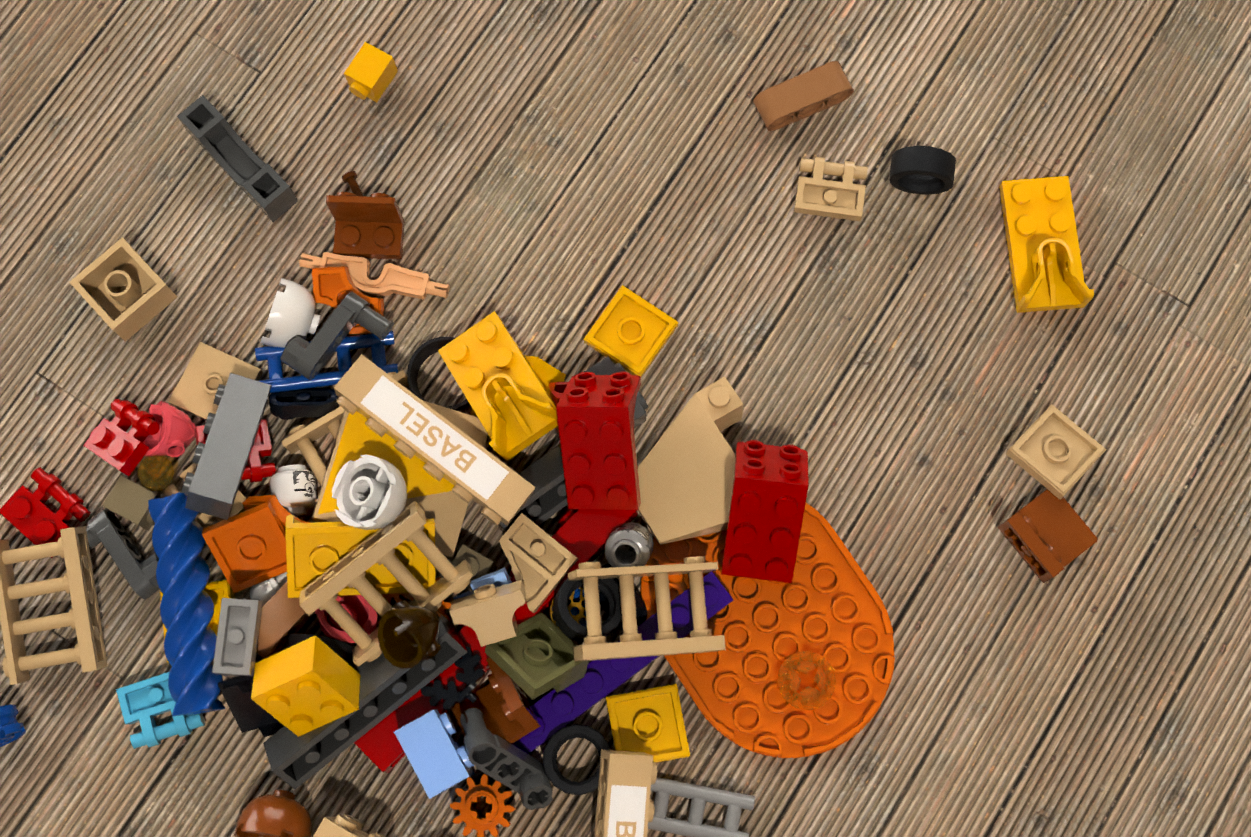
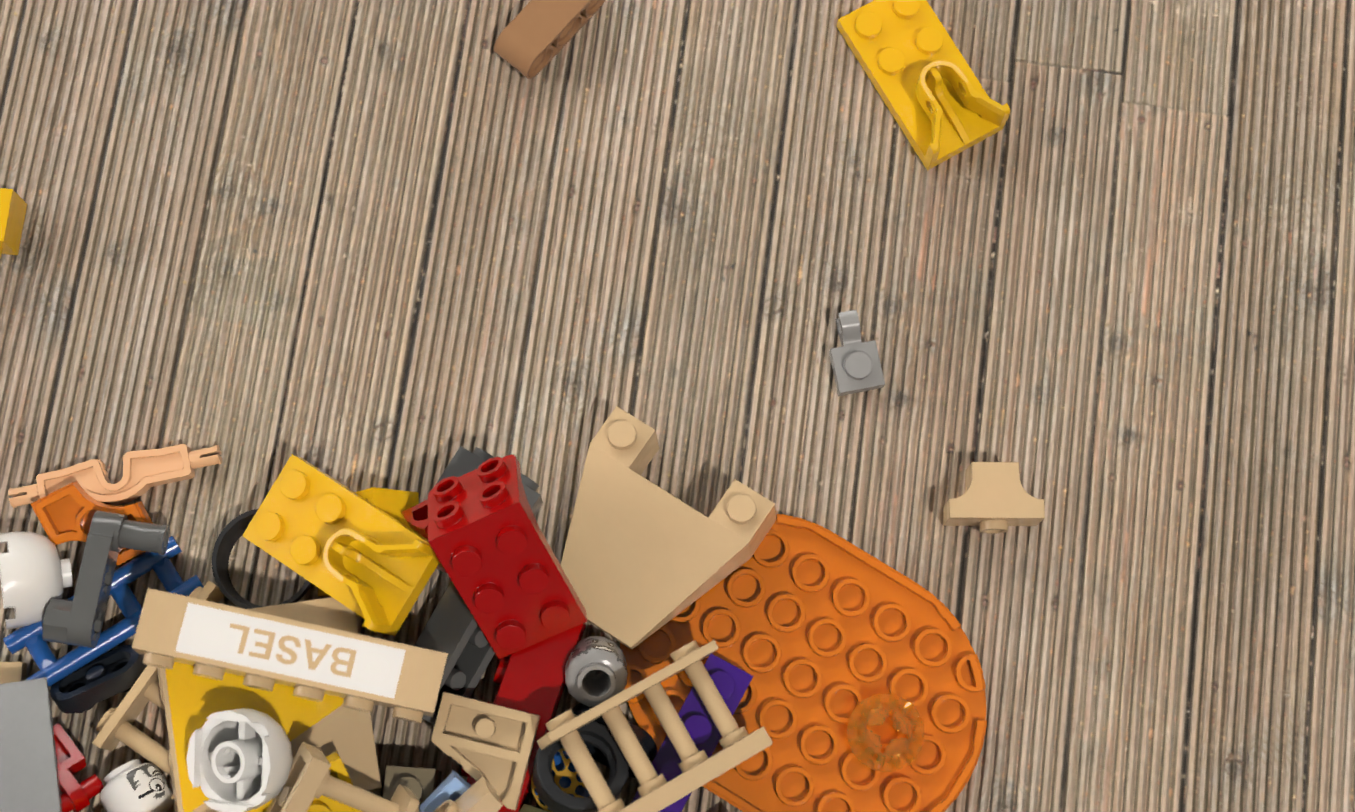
camera: 30 degrees left, 0 degrees up
(349, 178) = (28, 366): reddish brown piece -> none
(367, 225) = (77, 418): dark orange bracket -> none
(631, 332) = (474, 402): yellow plate -> none
(766, 511) = (743, 549): red bracket -> none
(830, 197) = (642, 128): tan plate -> none
(903, 421) = (855, 363): none -> light grey plate
(922, 170) = (738, 47): black tyre -> none
(956, 558) = (993, 500): none -> tan brick
(1048, 534) = (1086, 420): dark orange bracket -> none
(1055, 451) = (1050, 317): tan plate -> none

